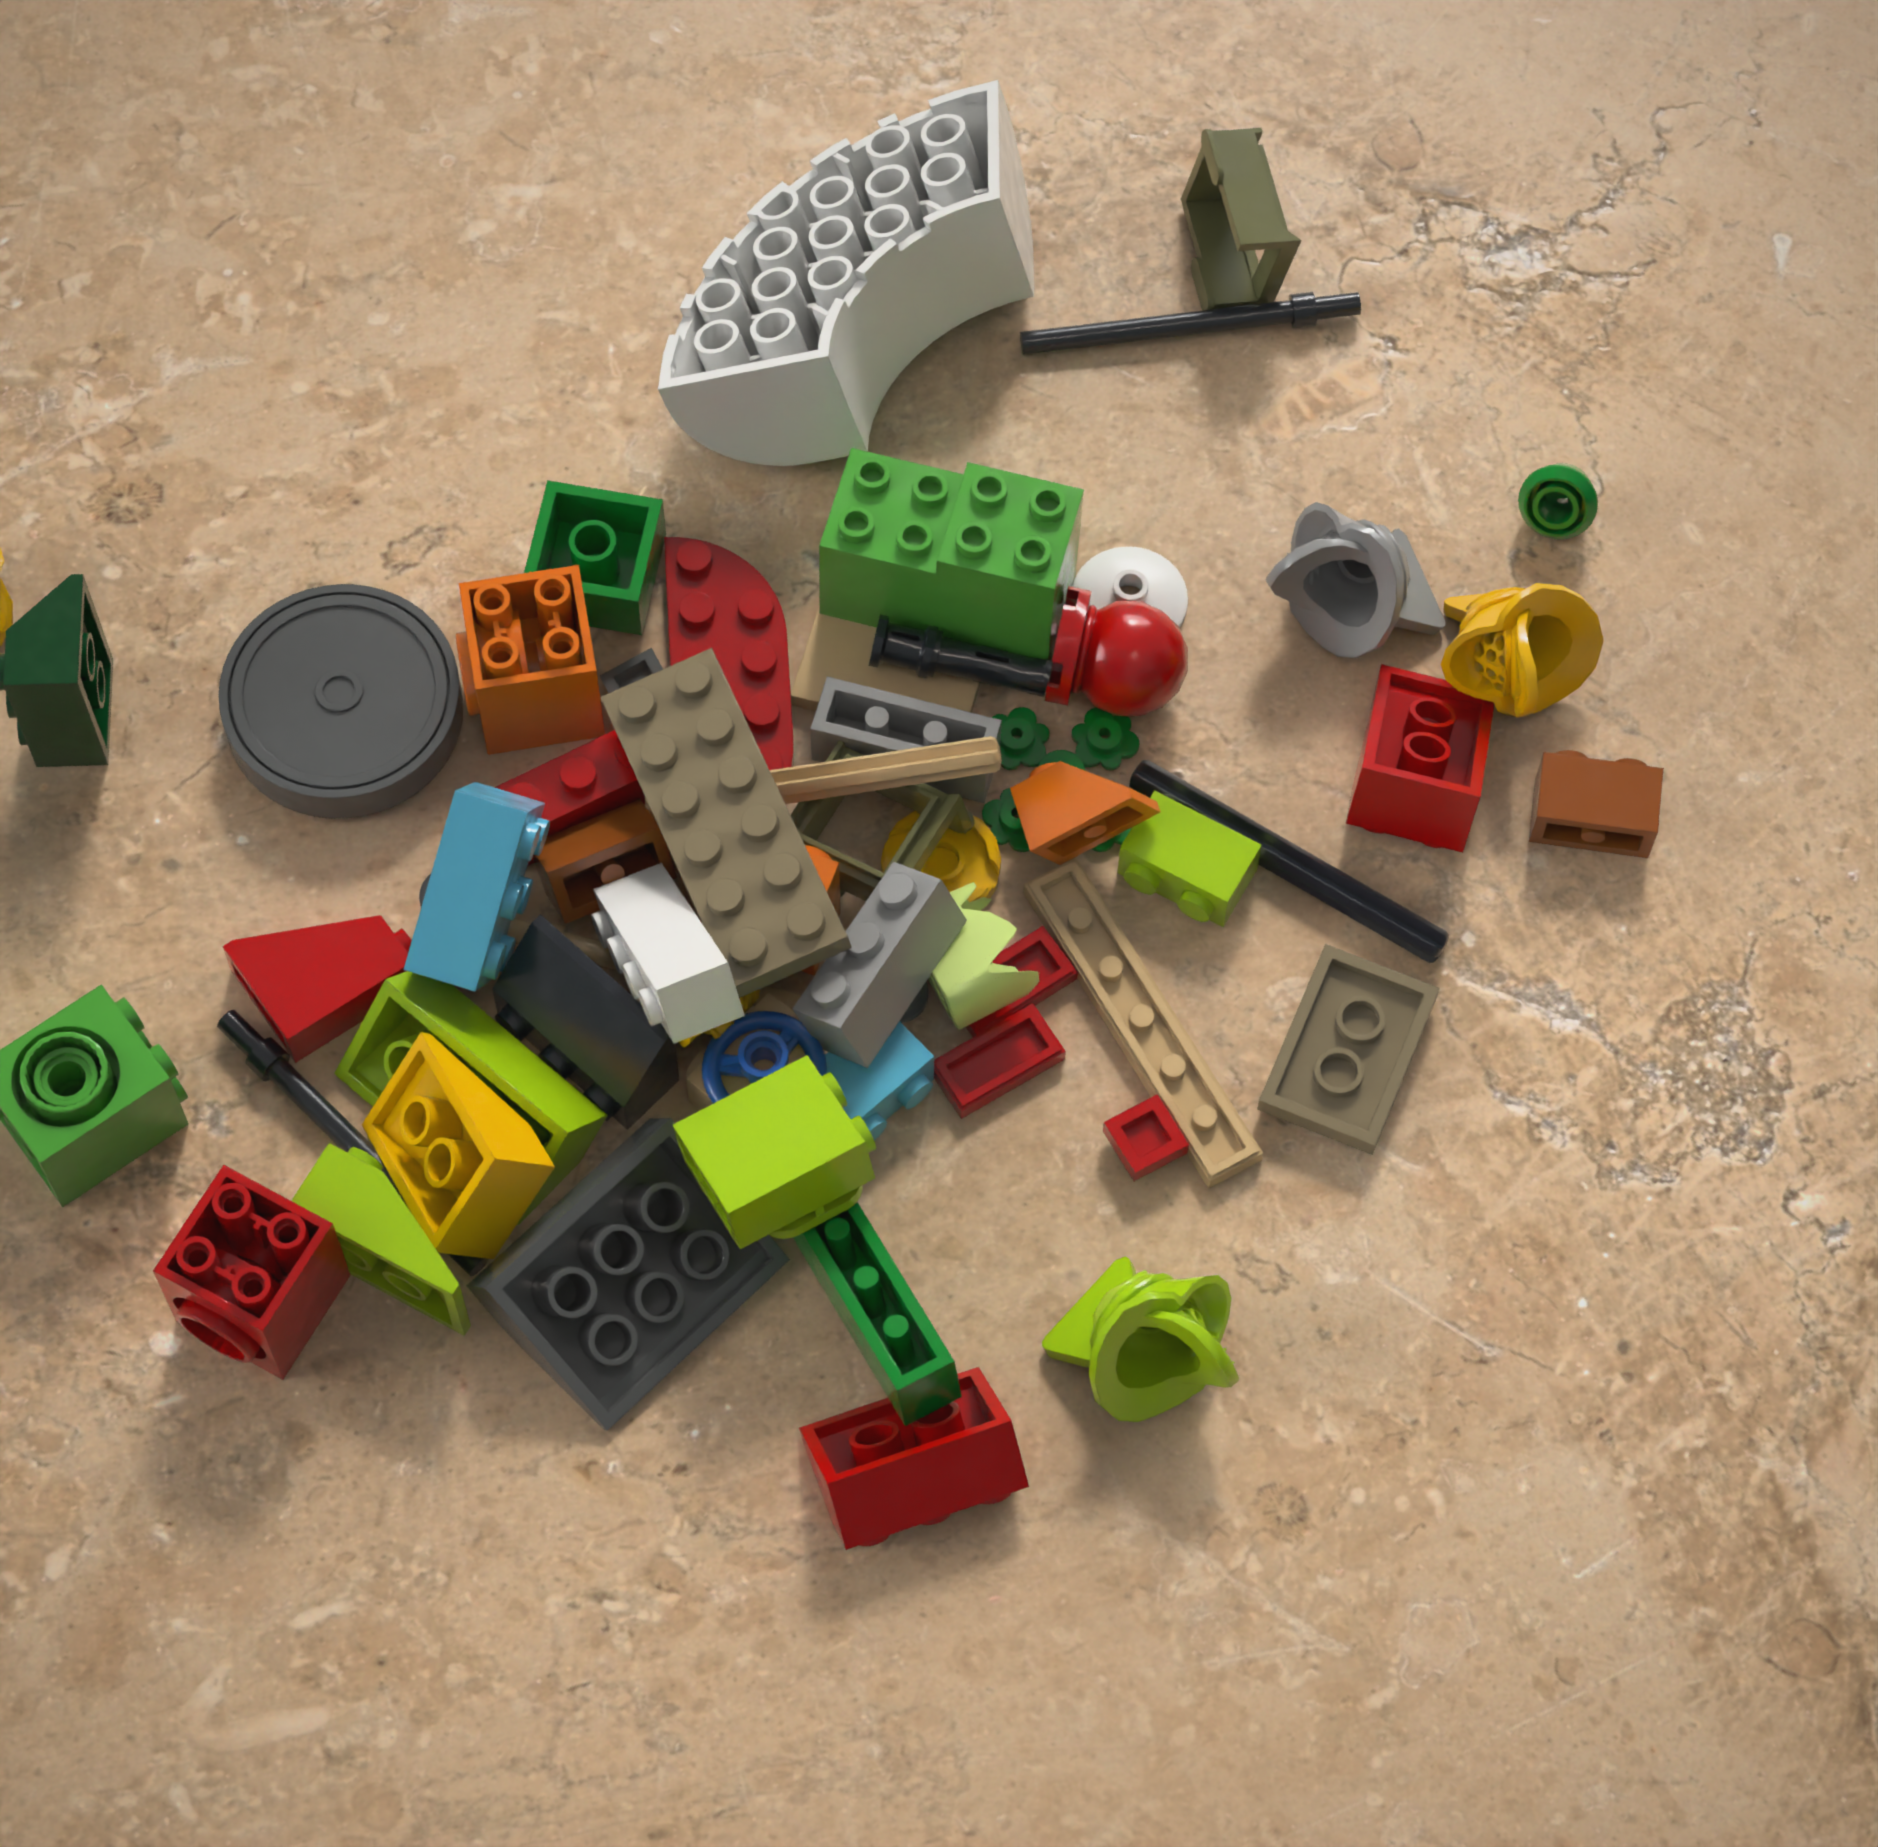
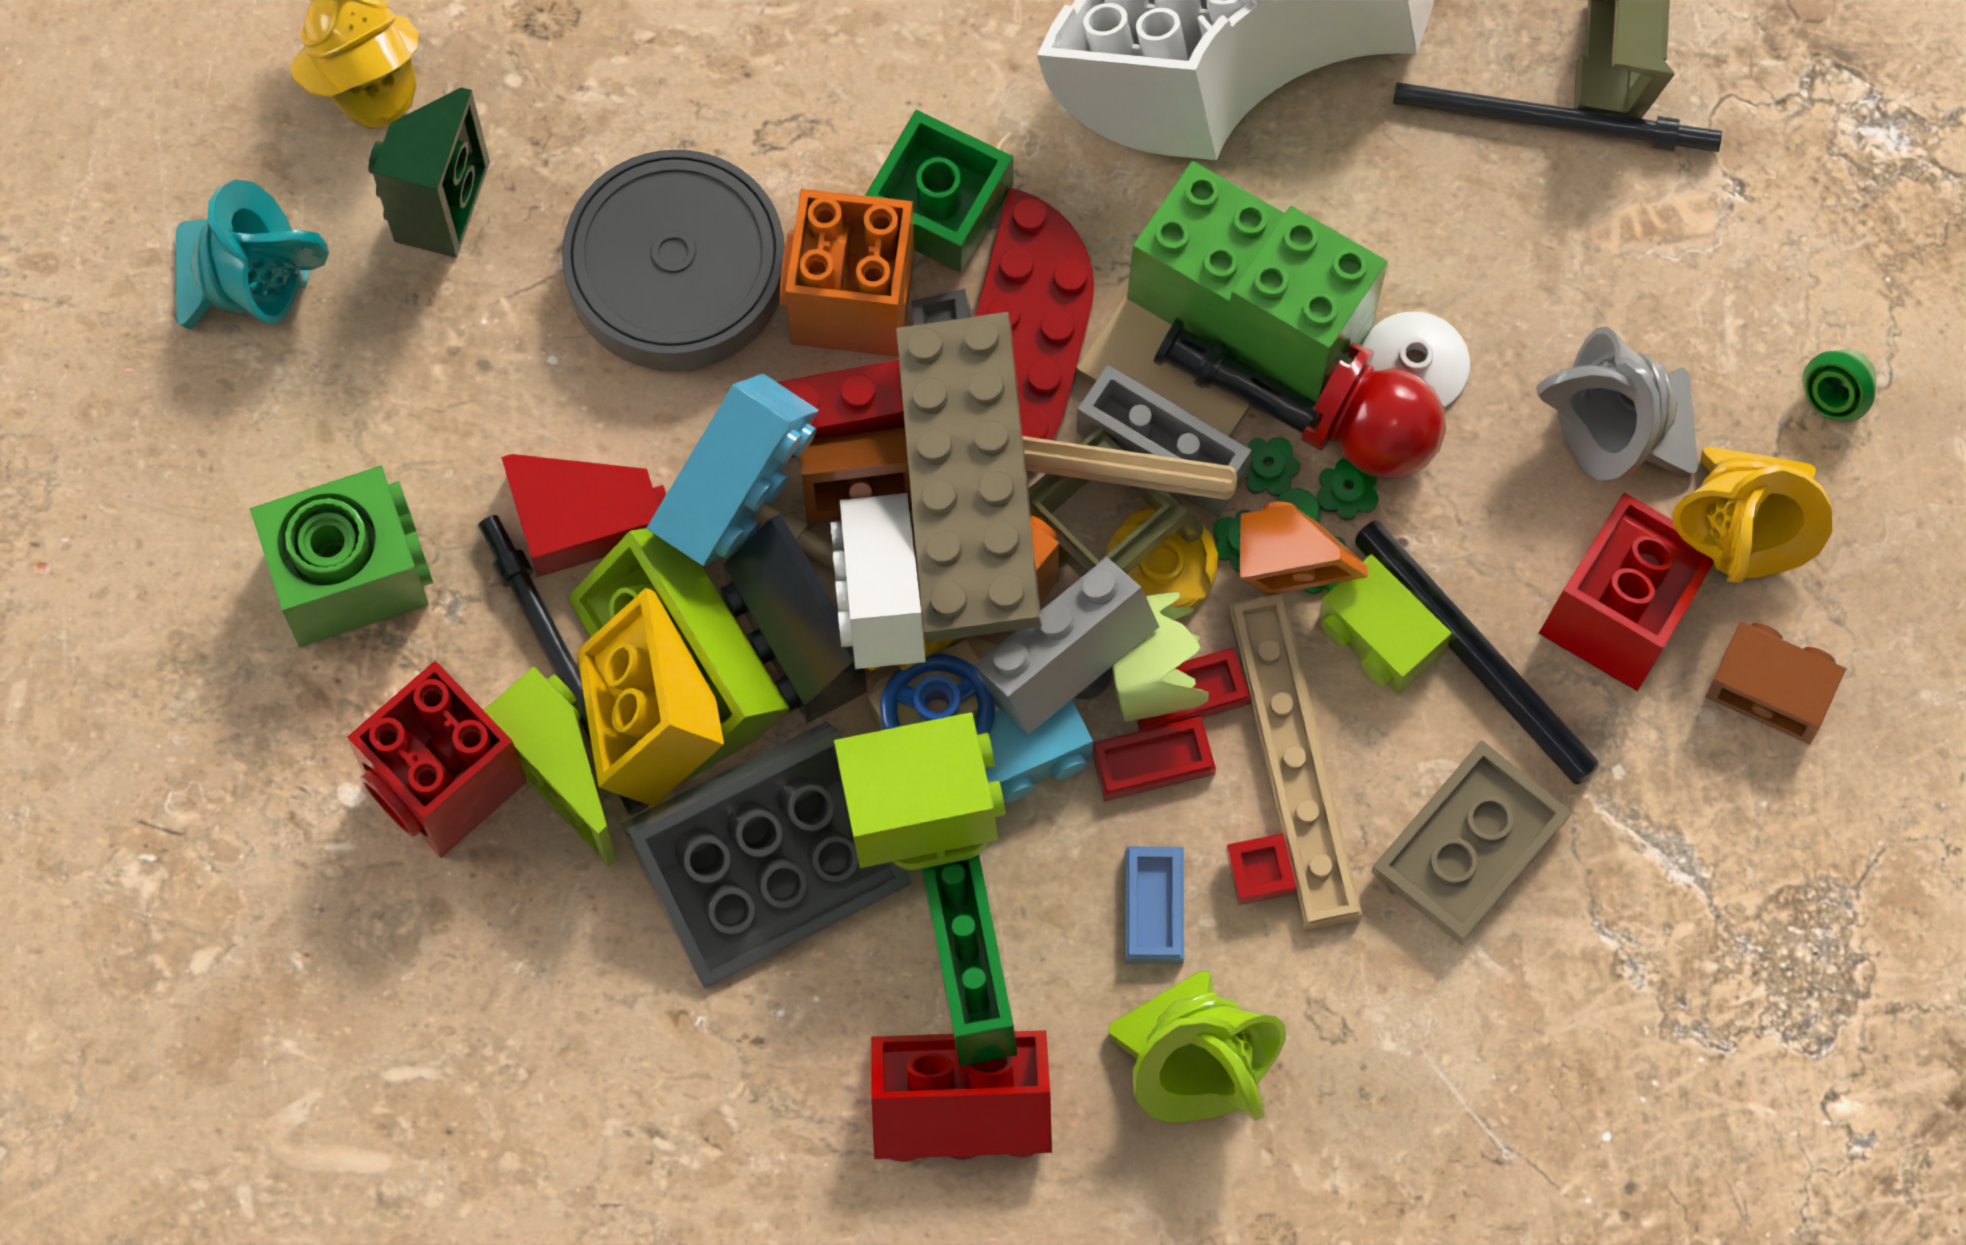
camera: 20 degrees right, 5 degrees up
(1048, 1207) = (1154, 905): none -> medium blue tile

